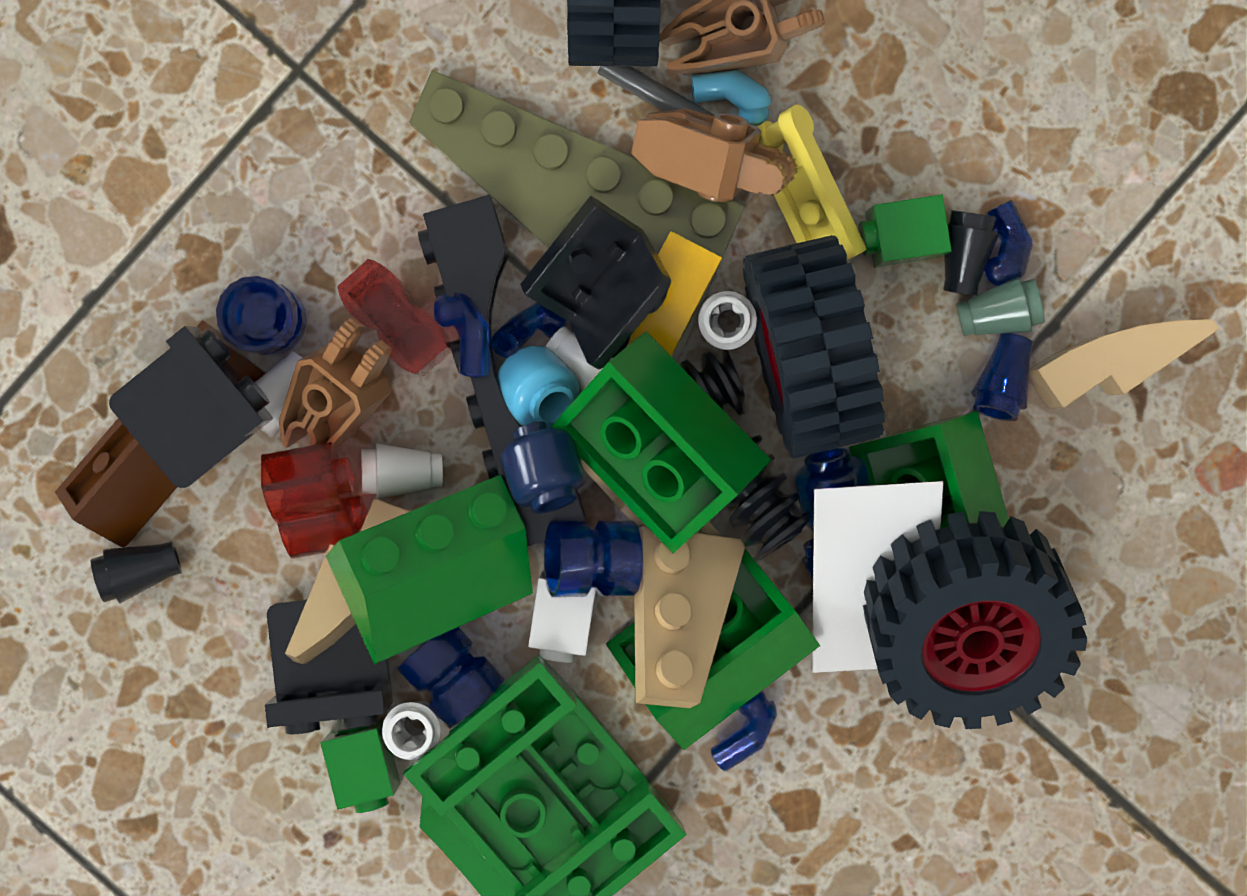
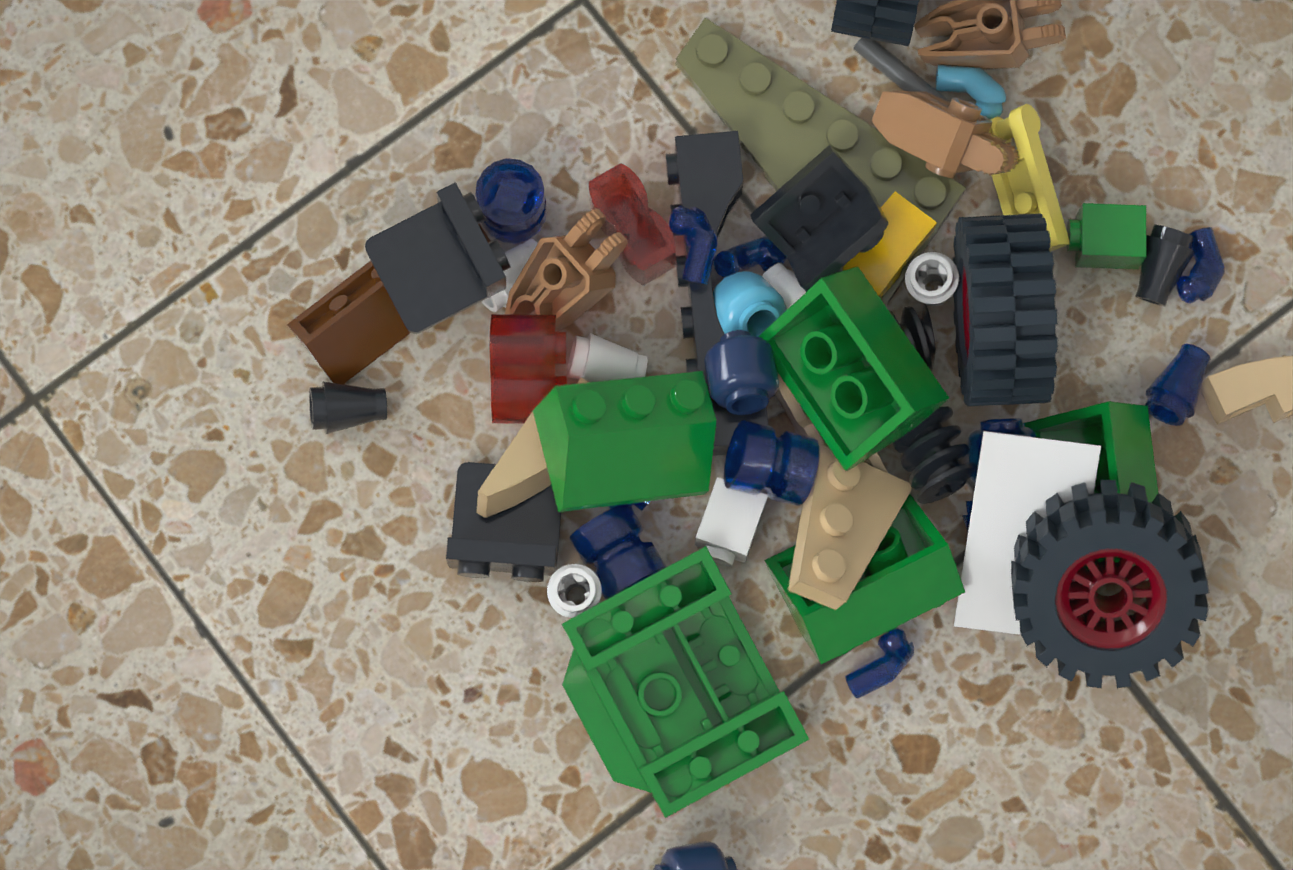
camera: 15 degrees right, 10 degrees down
(360, 767) = (517, 624): green brick -> none
(1003, 309) = (1186, 322): sand green cone -> none

